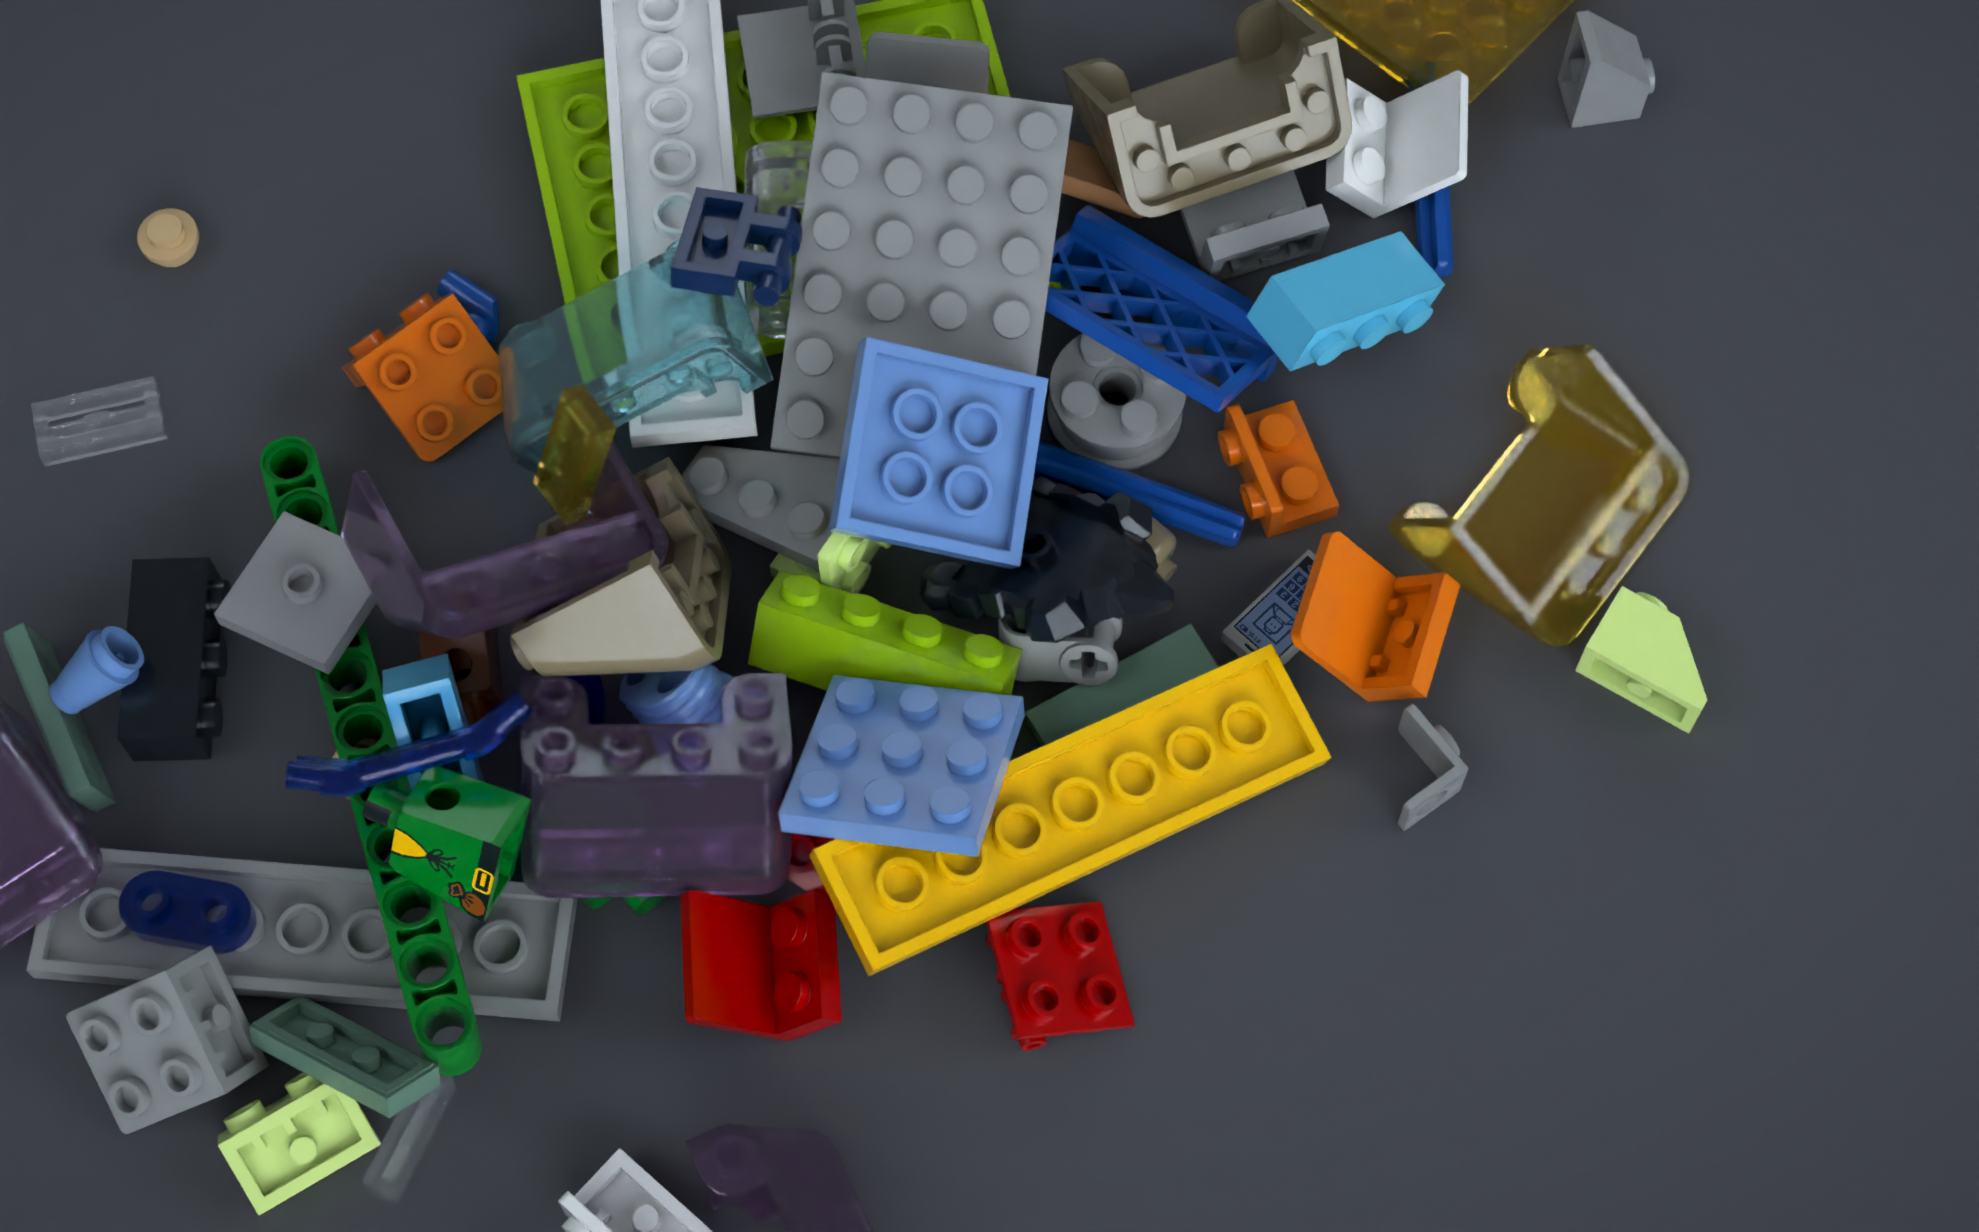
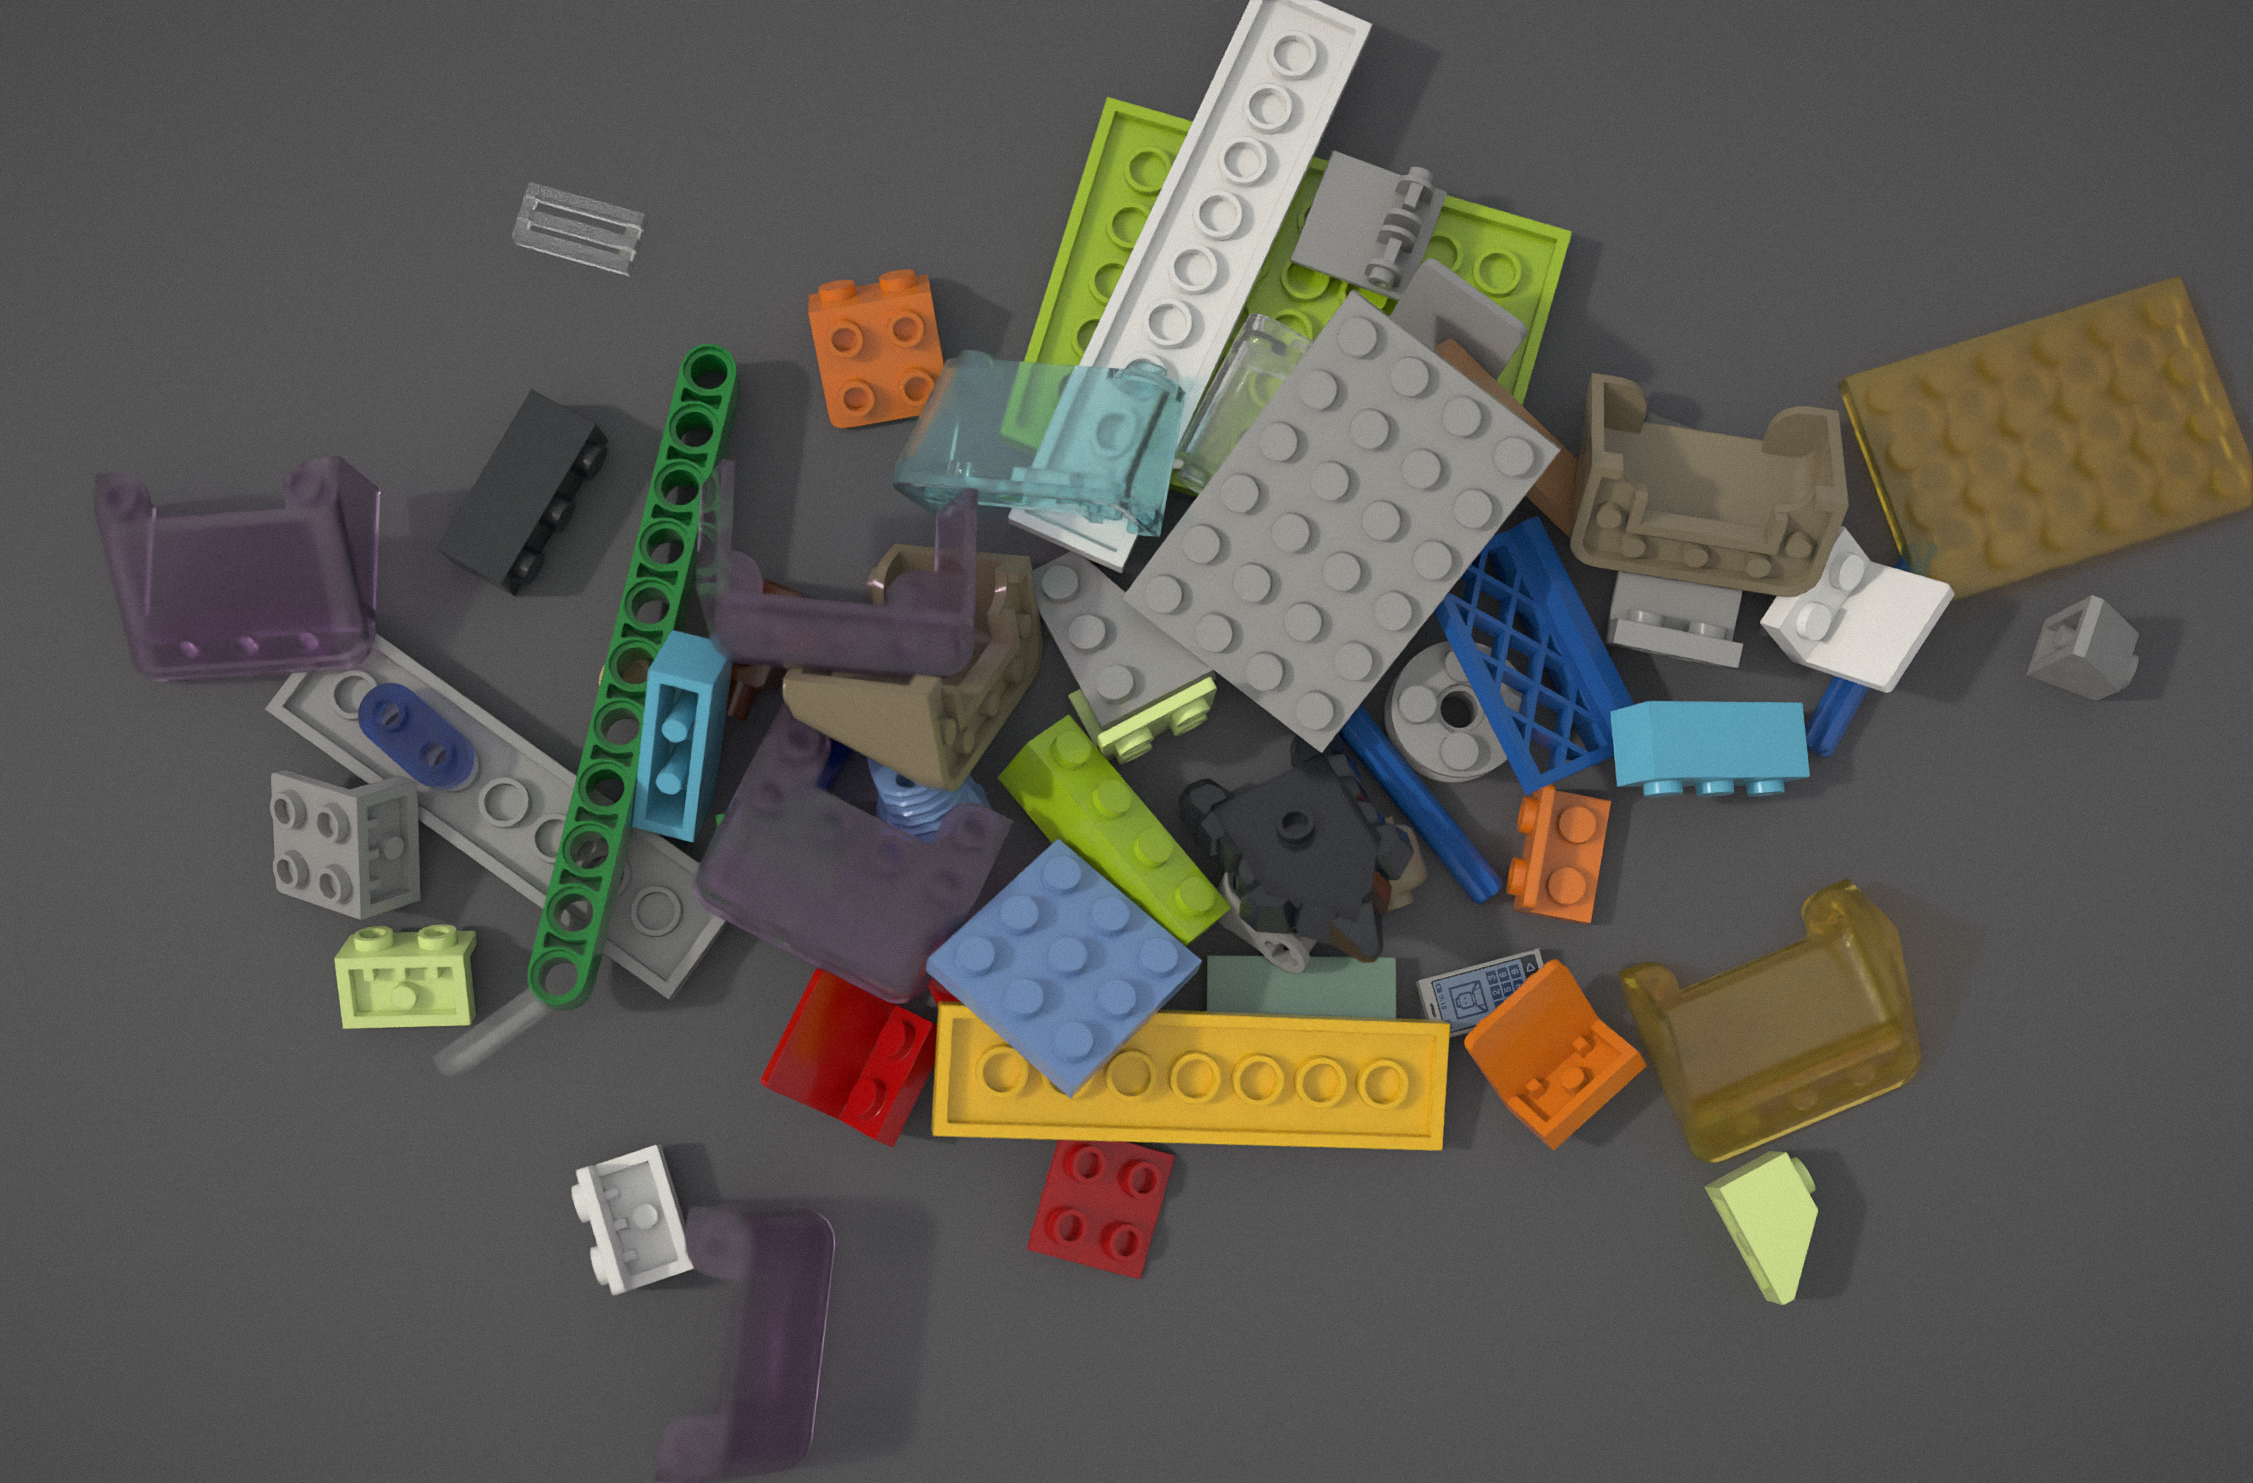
camera: 25 degrees right, 15 degrees up
(62, 732) = (403, 494): sand green tile -> none
(98, 668) = (449, 480): medium blue cone -> none
(168, 237) = (726, 83): tan plate -> none
(299, 594) = (645, 510): light grey plate -> none
(345, 1056) = (474, 942): sand green tile -> none
(352, 776) = (641, 740): clear blue piece -> none
(453, 836) = (657, 836): green torso -> none
(476, 301) = (955, 301): blue arm -> none
(574, 454) = (939, 523): clear yellow tile -> none
(717, 240) = (1168, 397): dark blue plate -> none
(938, 453) = (1252, 705): medium blue plate -> none
(1442, 757) = (1538, 1201): light grey bracket -> none

